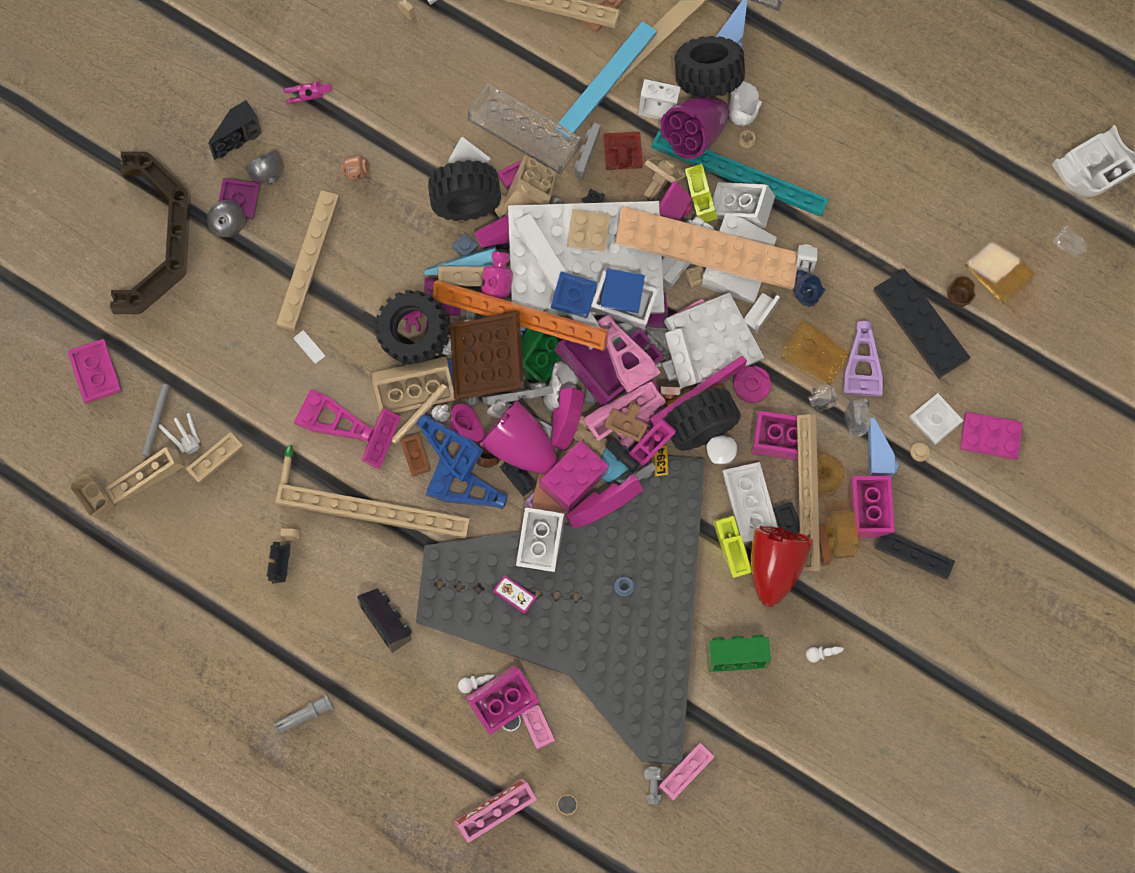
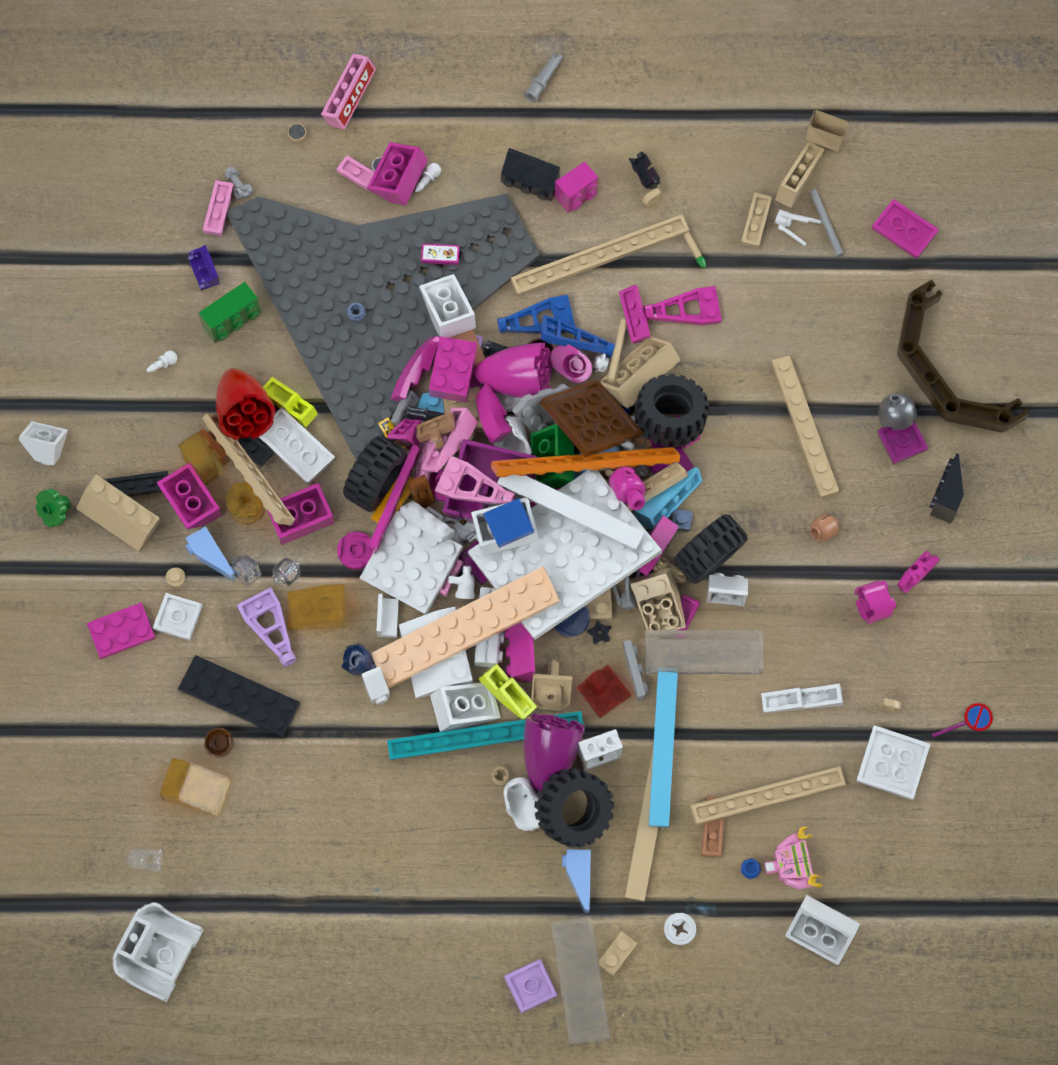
camera: 150 degrees right, 0 degrees up
(266, 168) = (897, 476): flat silver cylinder -> none
(309, 347) = (749, 357): white sticker -> none
(350, 579) = (576, 187): none -> dark pink brick
(360, 84) = (874, 601): none -> dark pink brick
(415, 455) = (597, 318): dark orange plate -> none
(468, 55) = (802, 698): none -> white slope
(573, 295) = (549, 499): blue tile -> none
(588, 230) = (576, 569): tan plate -> none
(682, 294) = (465, 584): none -> white piece
(721, 449) = (341, 469): white hair -> none
(734, 719) = (203, 268): none -> dark purple hinge
(938, 532) = (118, 513): none -> tan slope
(971, 641) = (43, 442): none -> white slope
(995, 571) = (52, 507): none -> green plant

